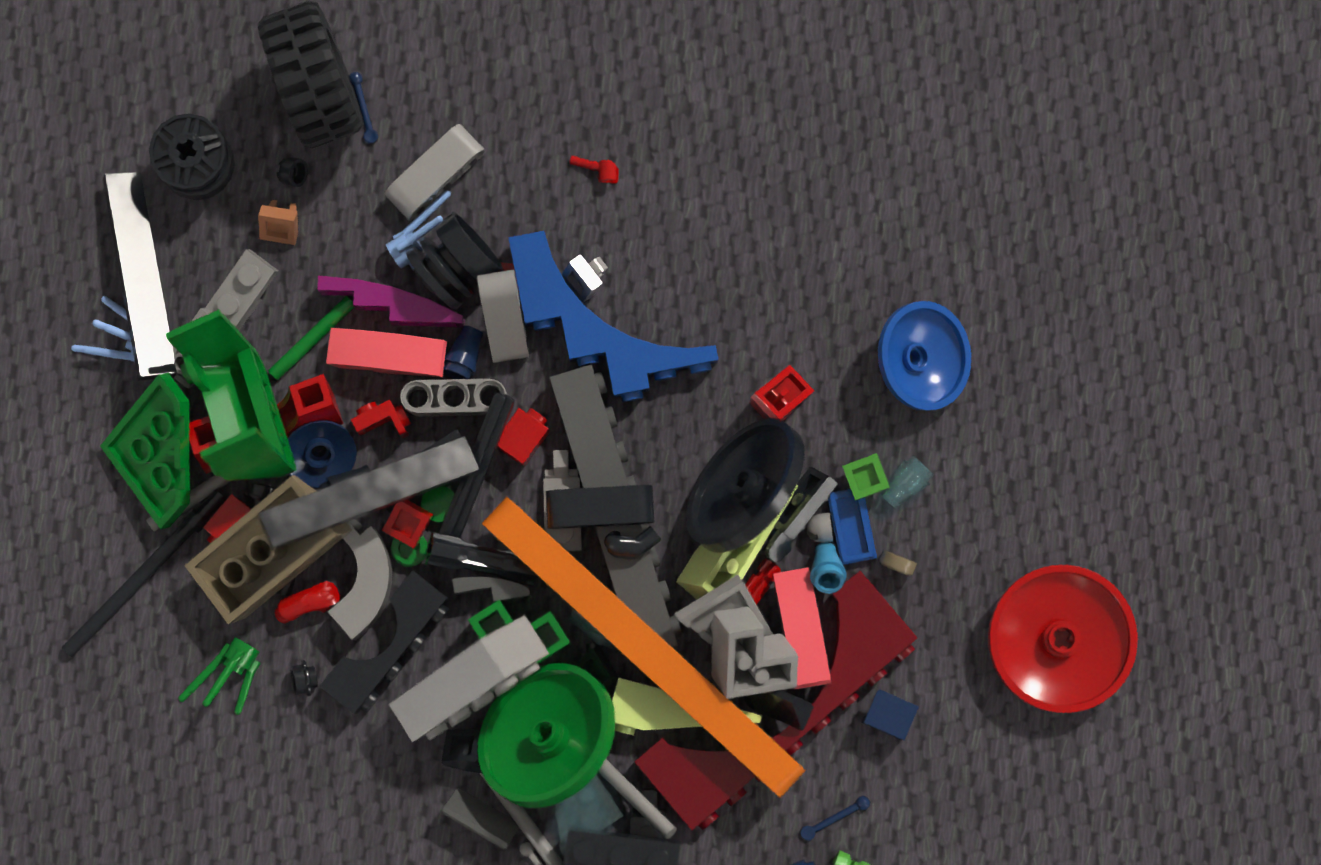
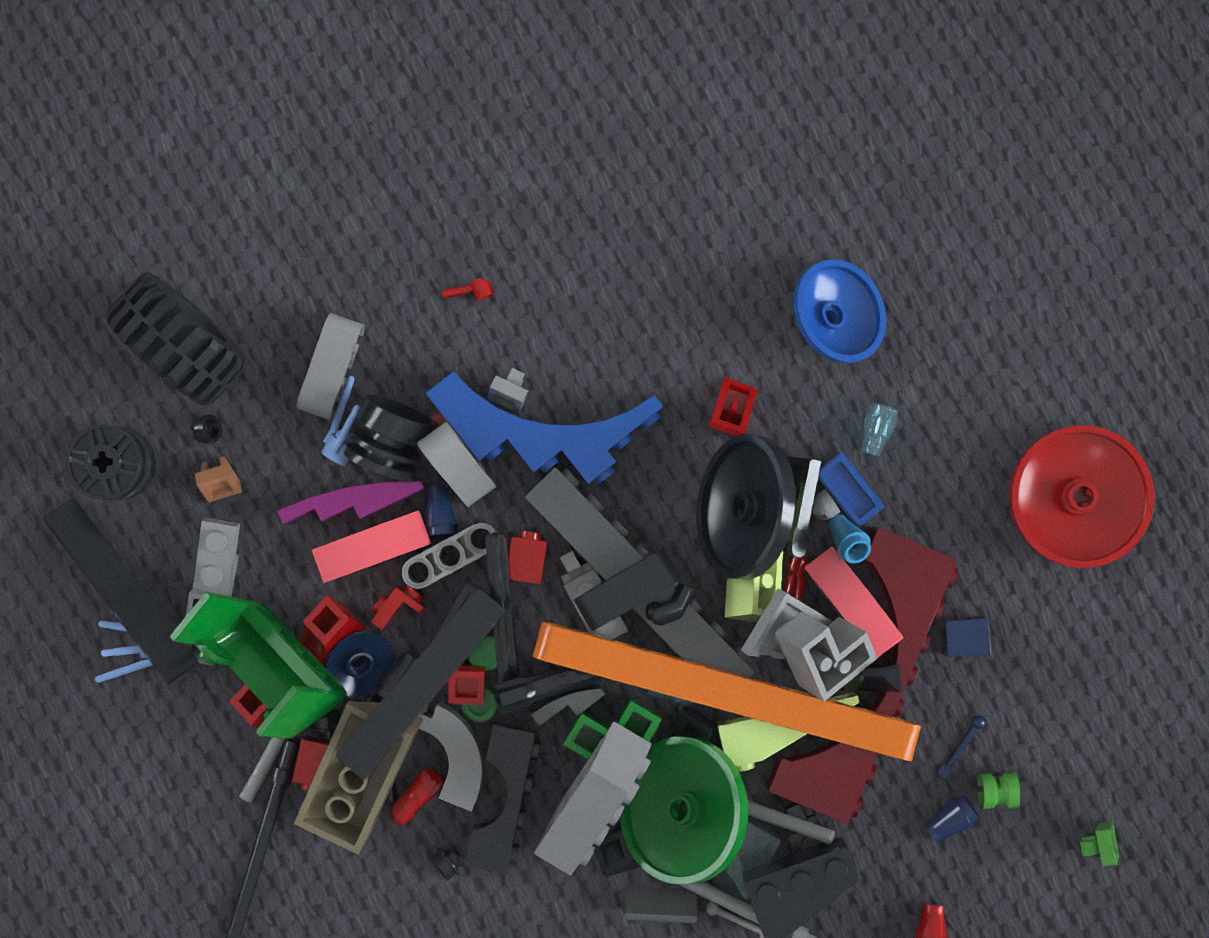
camera: 25 degrees left, 5 degrees up
(154, 450) = (214, 737): green plate -> none
(236, 658) = (381, 873): green plant -> none
(311, 338) = (299, 566): green bar -> none
(370, 135) = (257, 362): dark blue hinge -> none
(866, 476) = (842, 442): bright green tile -> none
(897, 563) = (906, 502): dark tan tile -> none

